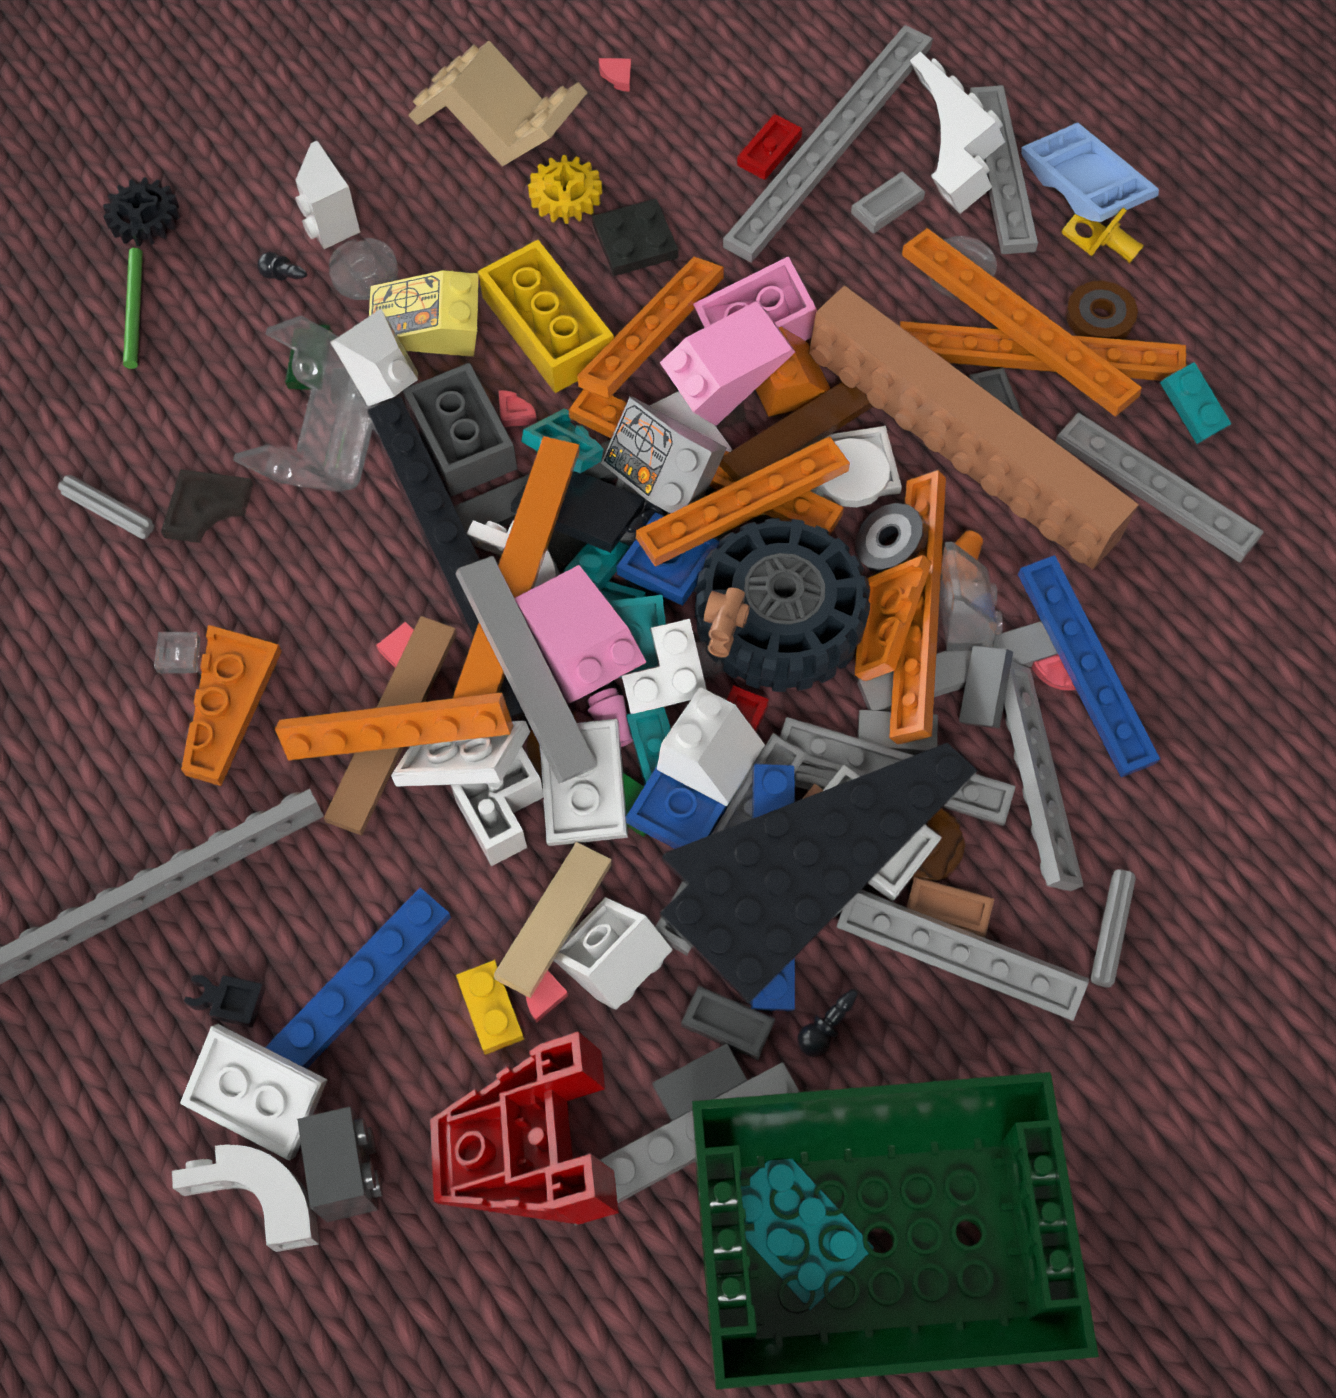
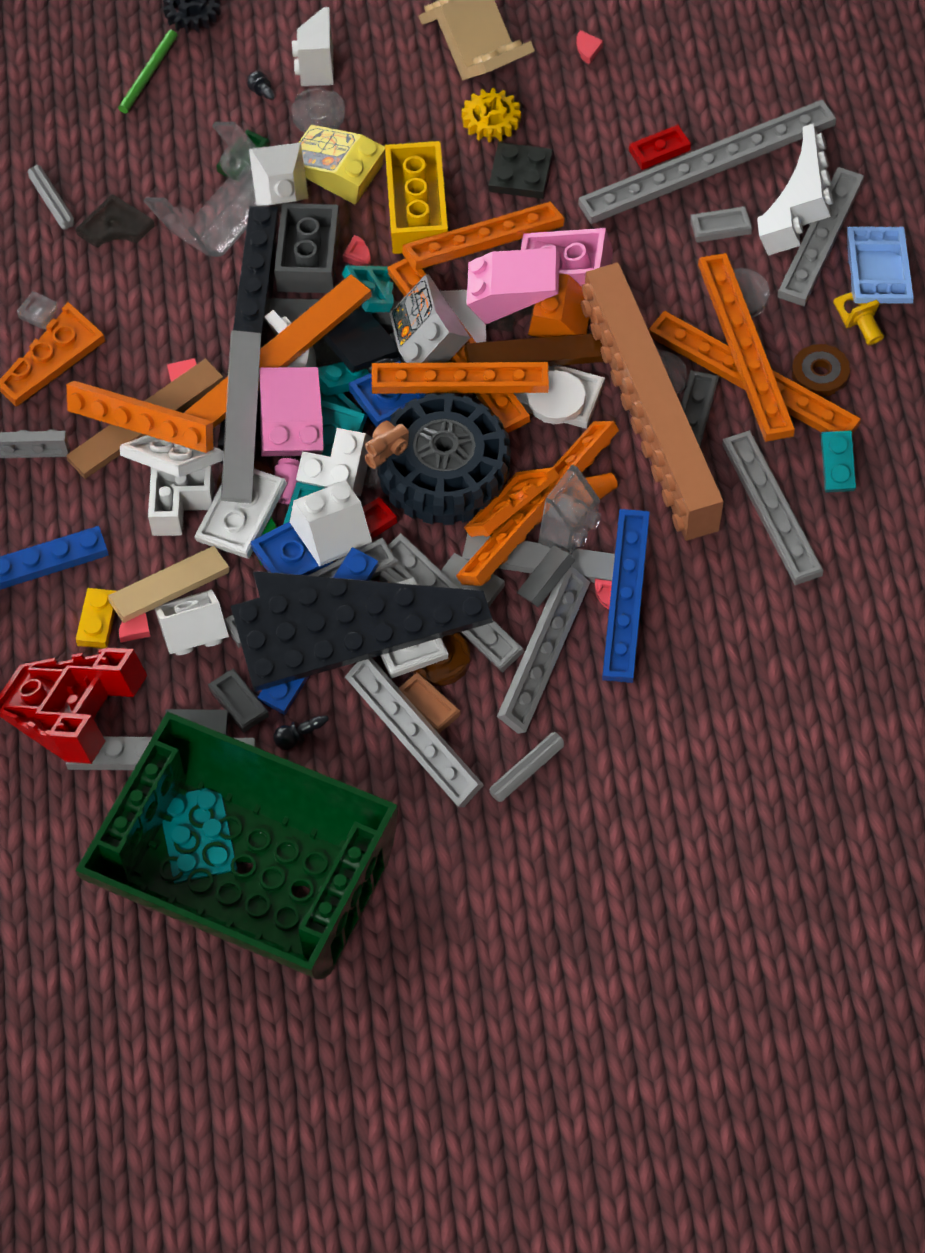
camera: 30 degrees right, 5 degrees down
(881, 525) = (551, 450): black tile -> none

